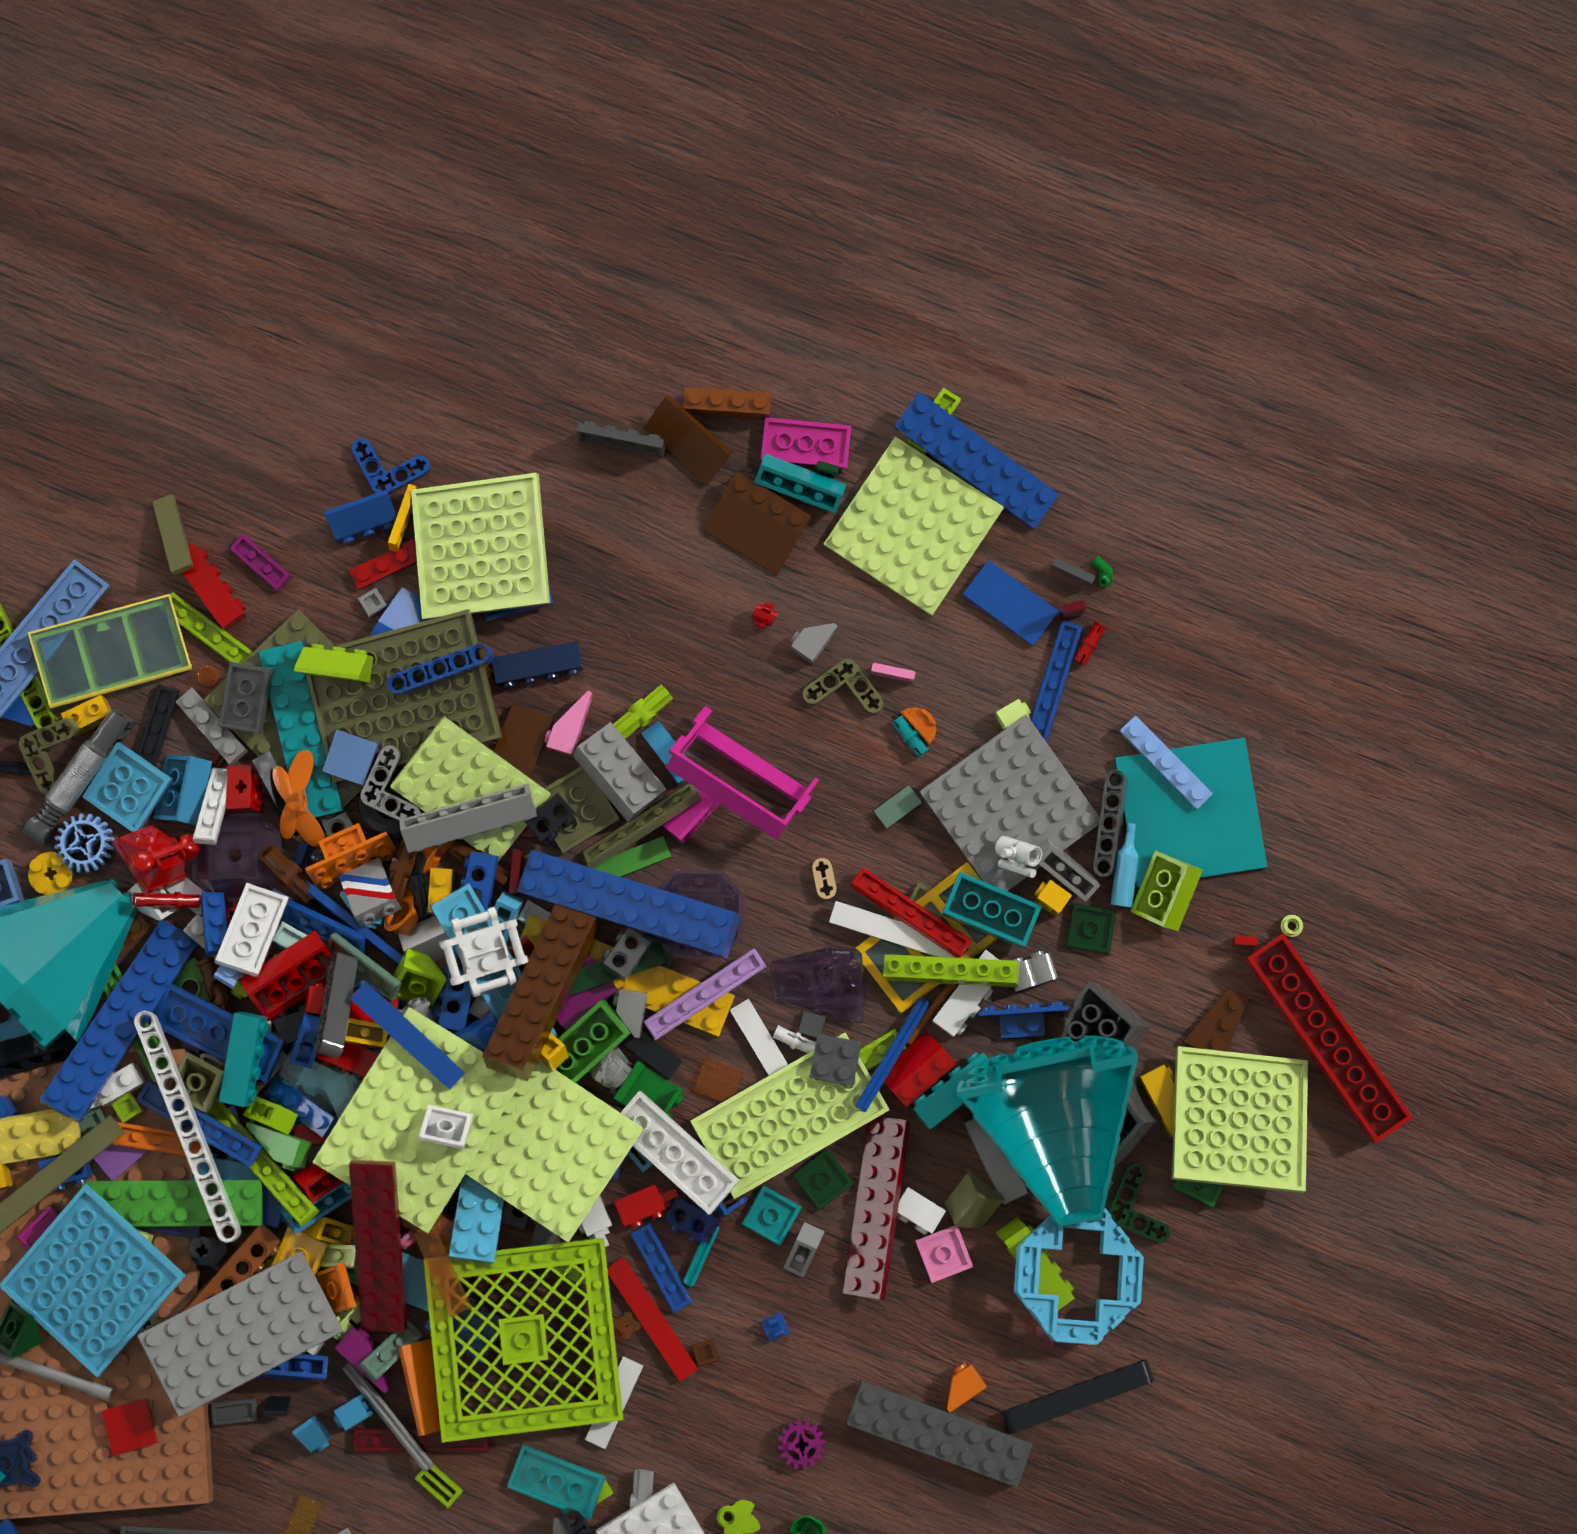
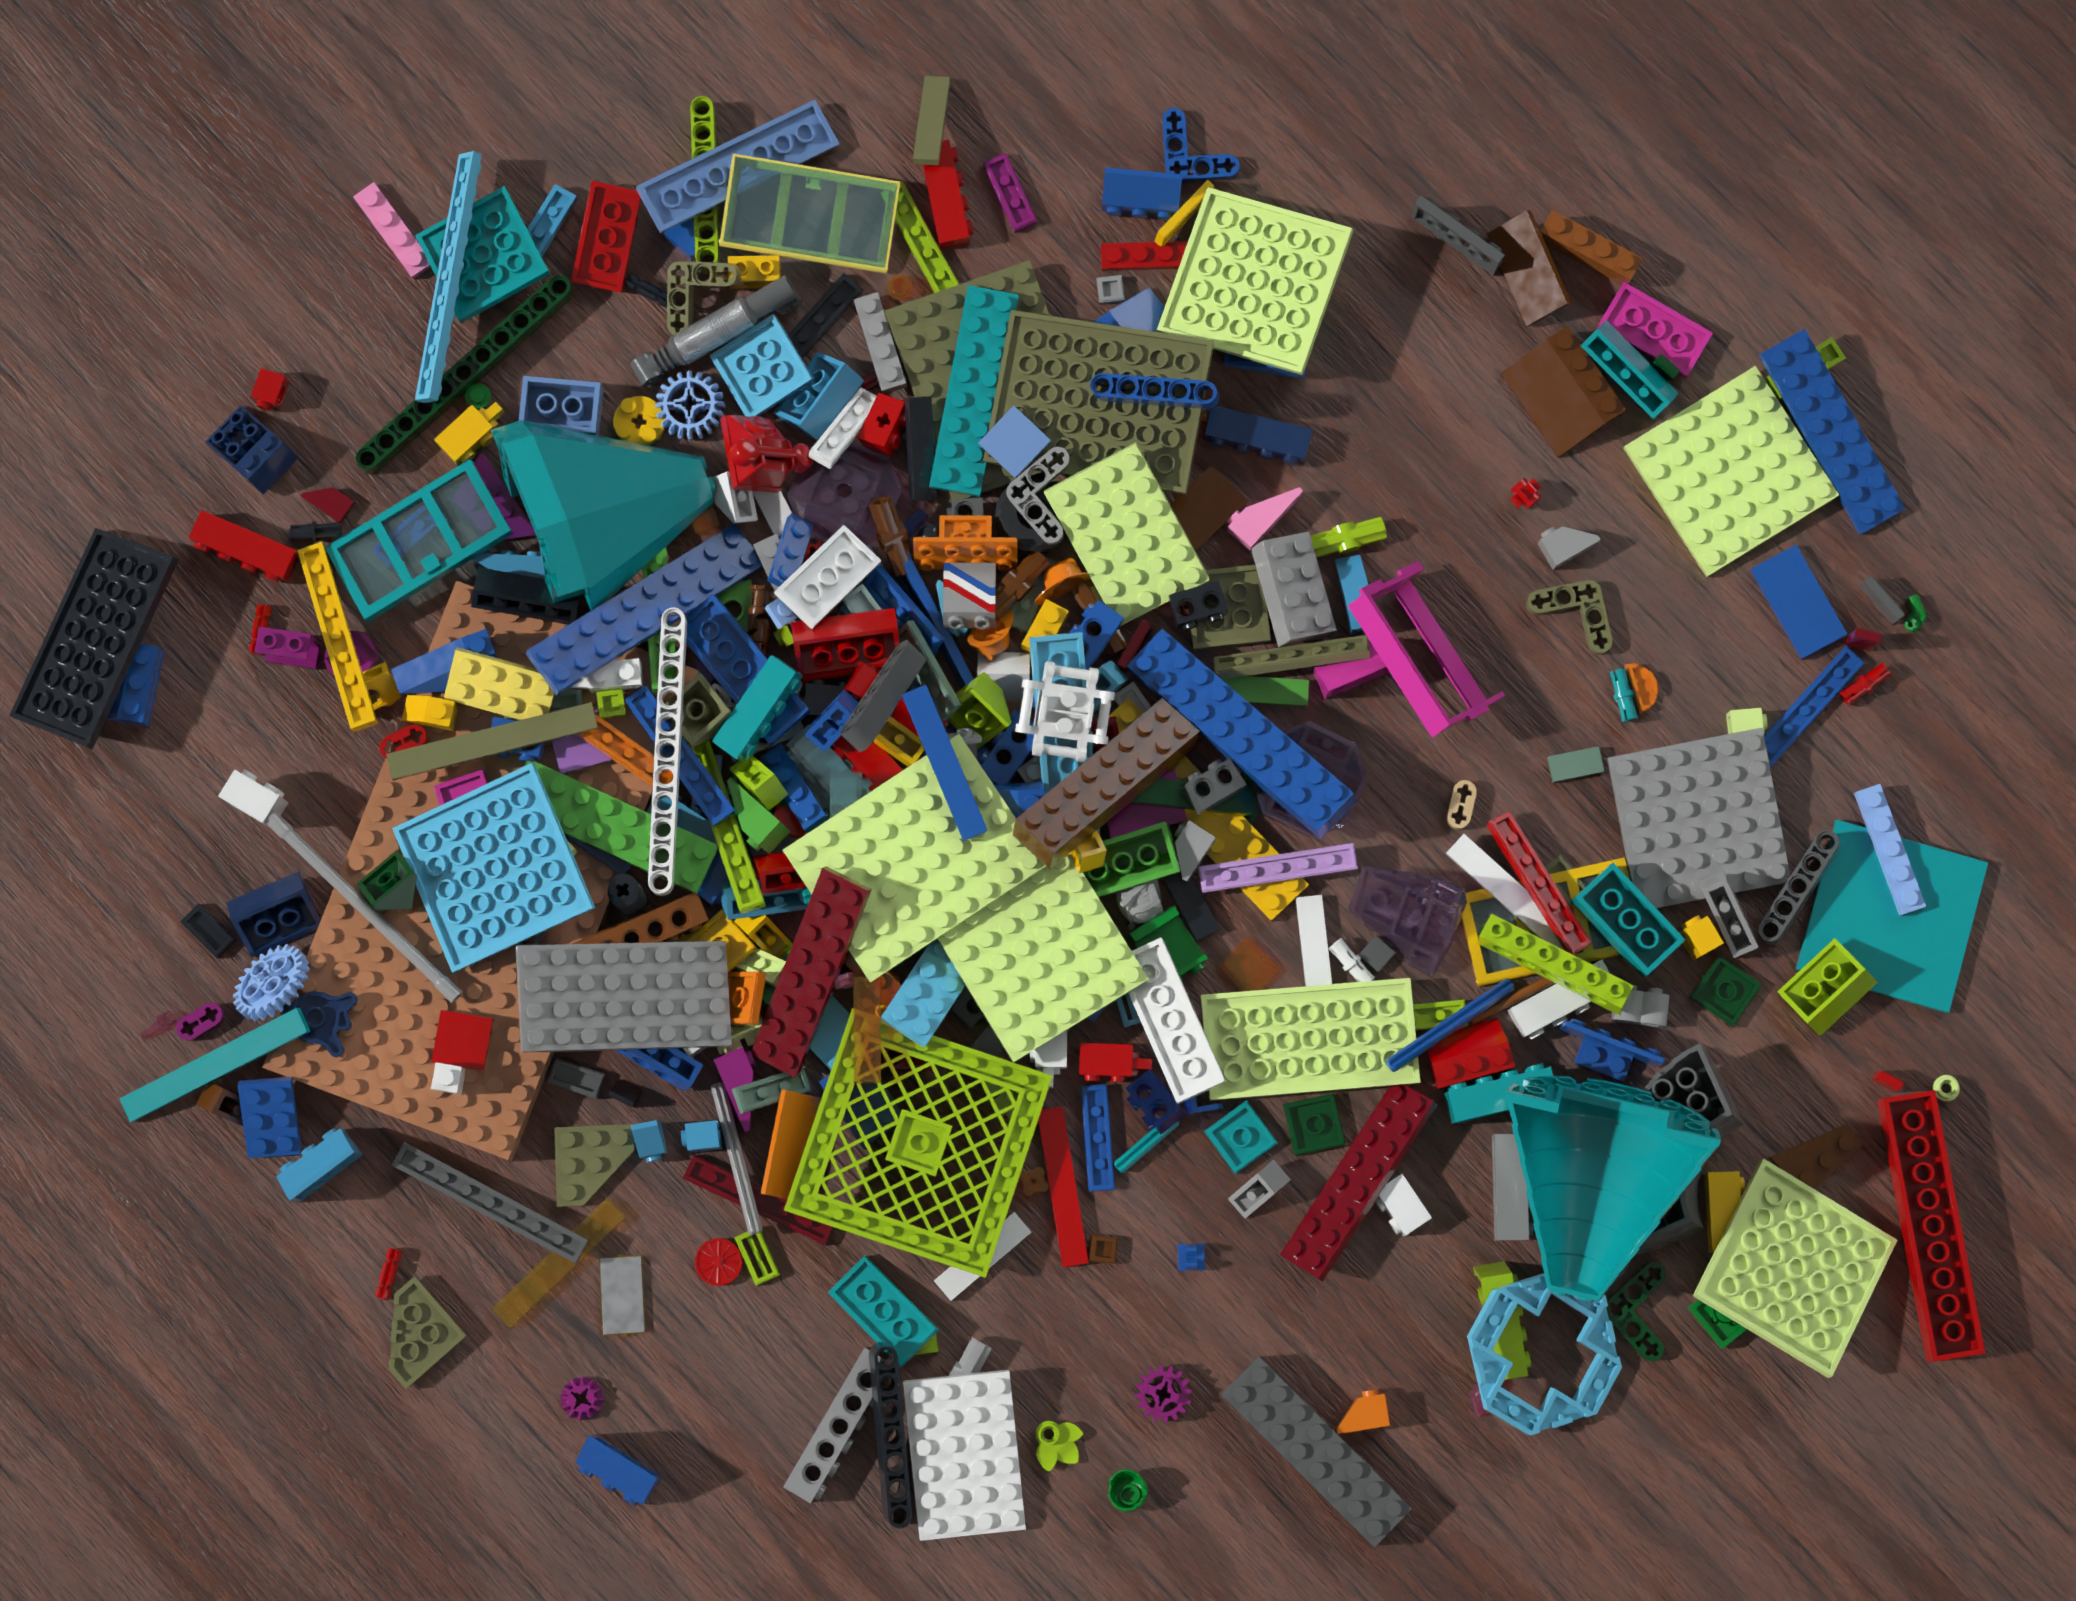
camera: 25 degrees right, 0 degrees up
(132, 1462) = (448, 1078): none -> white brick
(174, 900) = (741, 499): red pin -> none
(245, 698) = (931, 328): dark grey tile -> none
(272, 1471) = (588, 1159): none -> olive plate
(293, 791) = (937, 449): orange piece -> none
(335, 663) = (1044, 334): lime slope -> none
(410, 1503) = (718, 1262): none -> red wheel
(419, 894) = (1021, 622): black axle -> none
(446, 1127) = (941, 878): white slope -> none
(468, 818) = (1111, 563): light grey brick -> none
(835, 1060) = (1386, 1002): dark grey plate -> none
(893, 672) = (1636, 618): bright pink tile -> none
(944, 1253) = (1408, 1263): bright pink plate -> none
(972, 1202) = (1464, 1223): olive slope -> none
(1019, 855) = (1685, 874): white pin -> none
(1078, 1396) = (1483, 1482): black beam -> none
(1125, 871) = (1792, 945): medium azure piece -> none

